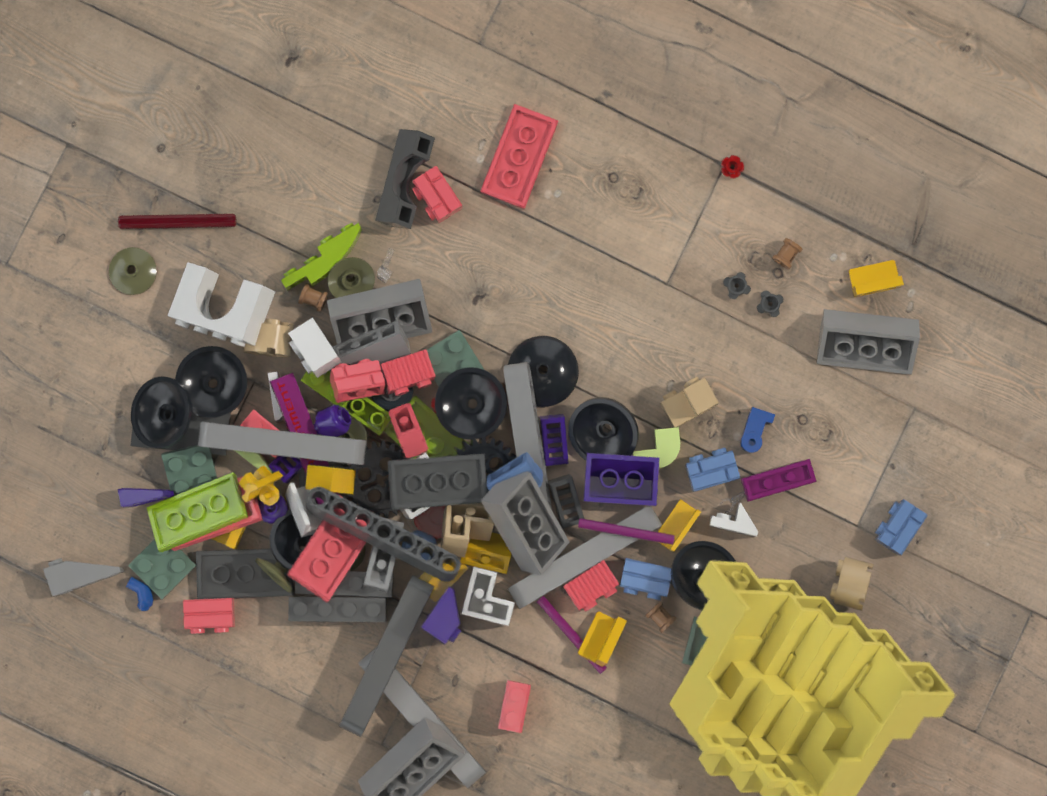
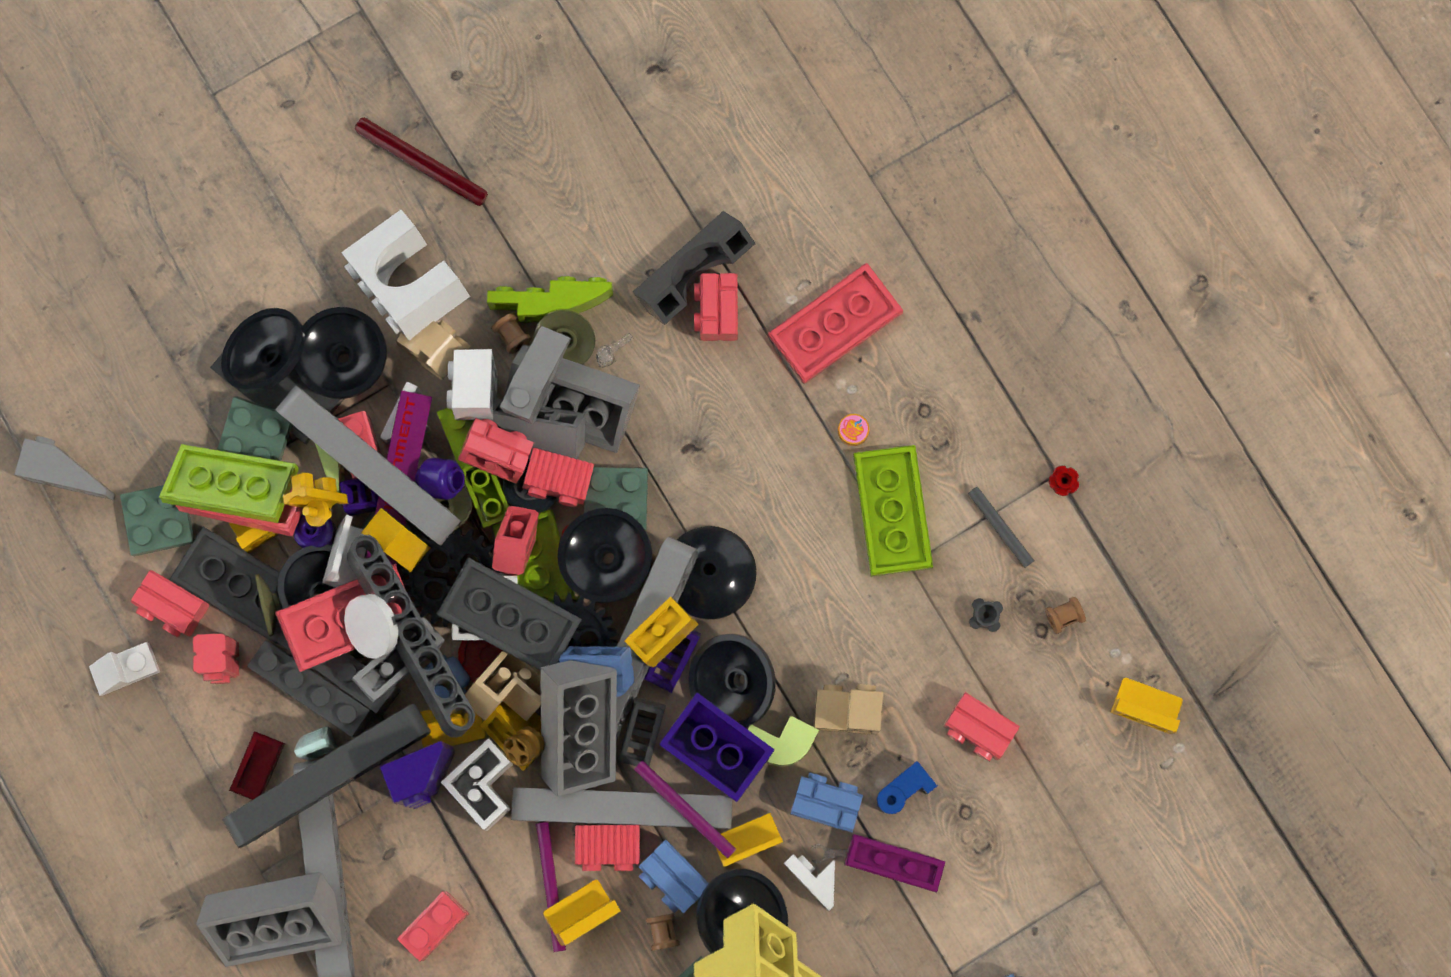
camera: 35 degrees right, 5 degrees down
(136, 496) = (180, 427): dark purple slope -> none
(142, 278) = (342, 198): olive dish -> none
(144, 593) = (116, 536): blue arm -> none
(206, 674) = (124, 668): none -> white slope
(264, 628) = (216, 657): none -> coral brick
(334, 680) = (257, 766): none -> dark red tile
(351, 315) = (535, 375): none -> light grey slope
(354, 544) = (370, 626): none -> white tile
(363, 641) = (315, 744): none -> light aqua slope
(499, 557) = (523, 746): none -> pearl gold wheel
(539, 429) = (661, 632): none -> yellow panel
(576, 219) = (853, 429): none -> tile
(634, 256) = (893, 510): none -> lime tile
(710, 222) = (1001, 527): none -> dark grey bar
(769, 297) = (1011, 649): dark grey plate -> none
(778, 359) = (980, 727): none -> coral brick
(868, 341) = (1095, 771): light grey slope -> none

